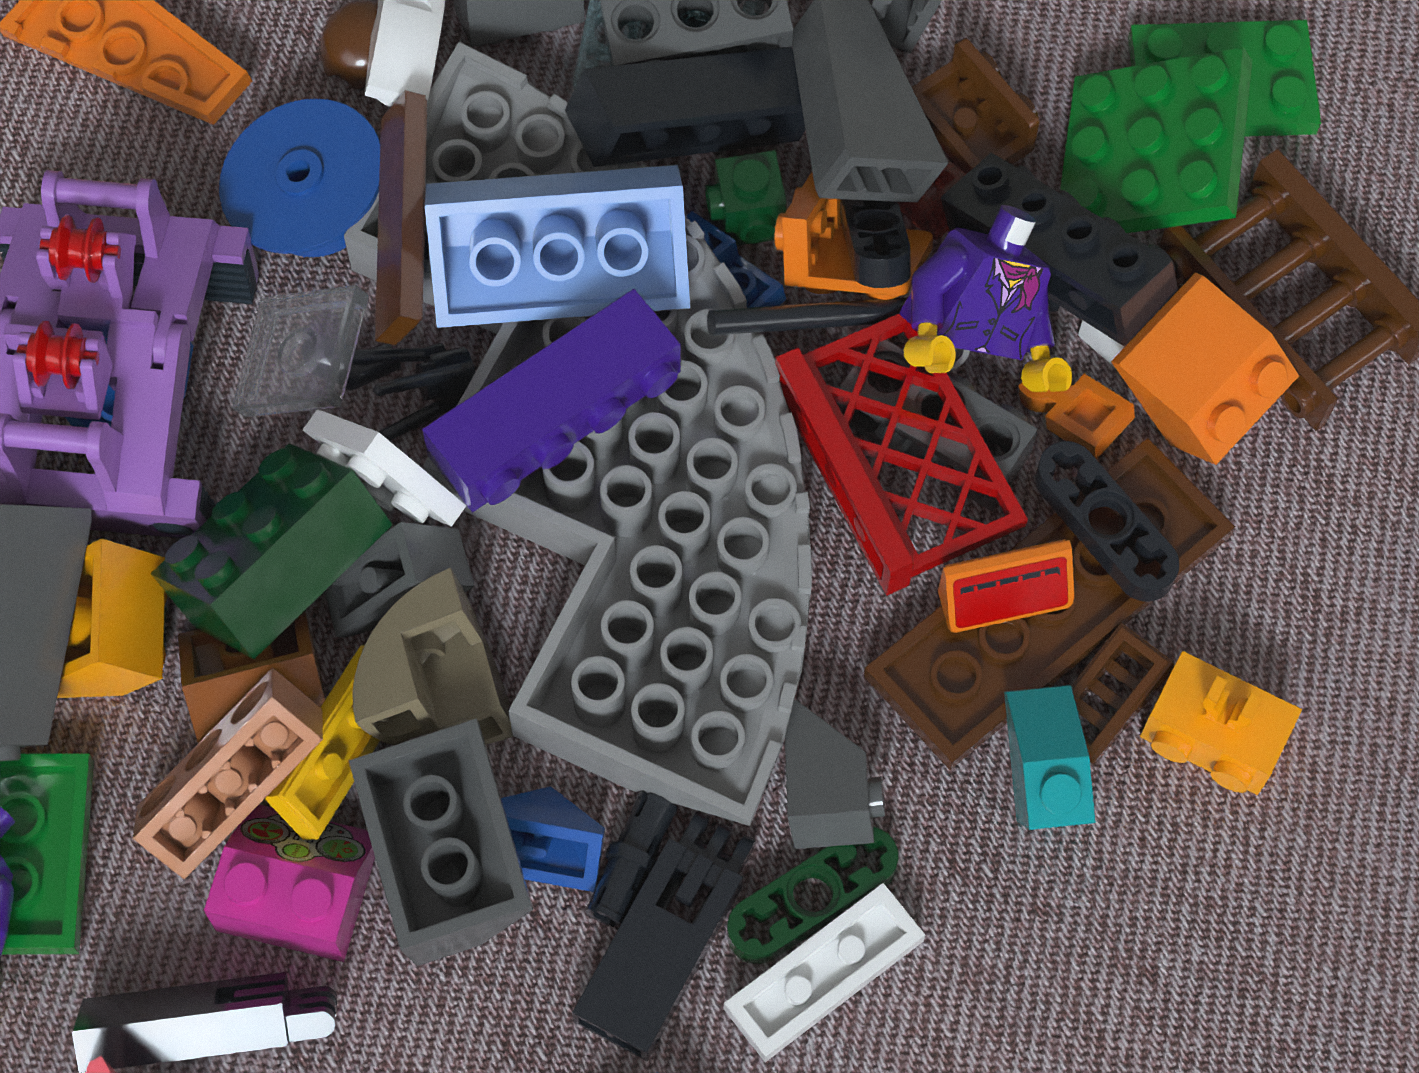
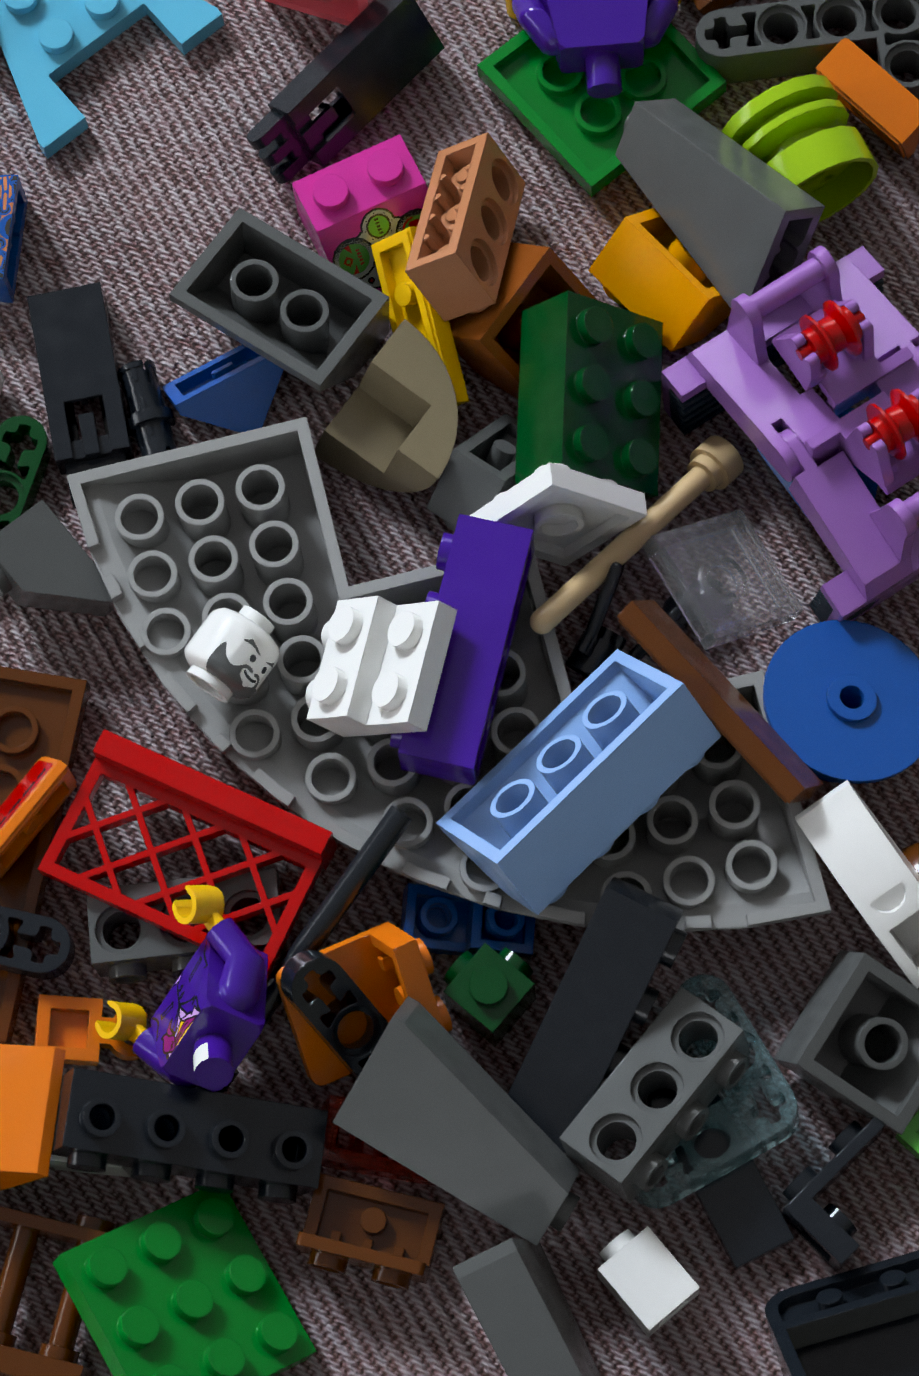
camera: 150 degrees right, 5 degrees up
(222, 450) = (711, 467): none -> tan piece
(635, 422) = (380, 666): none -> white plate
(741, 535) = (232, 653): none -> white head

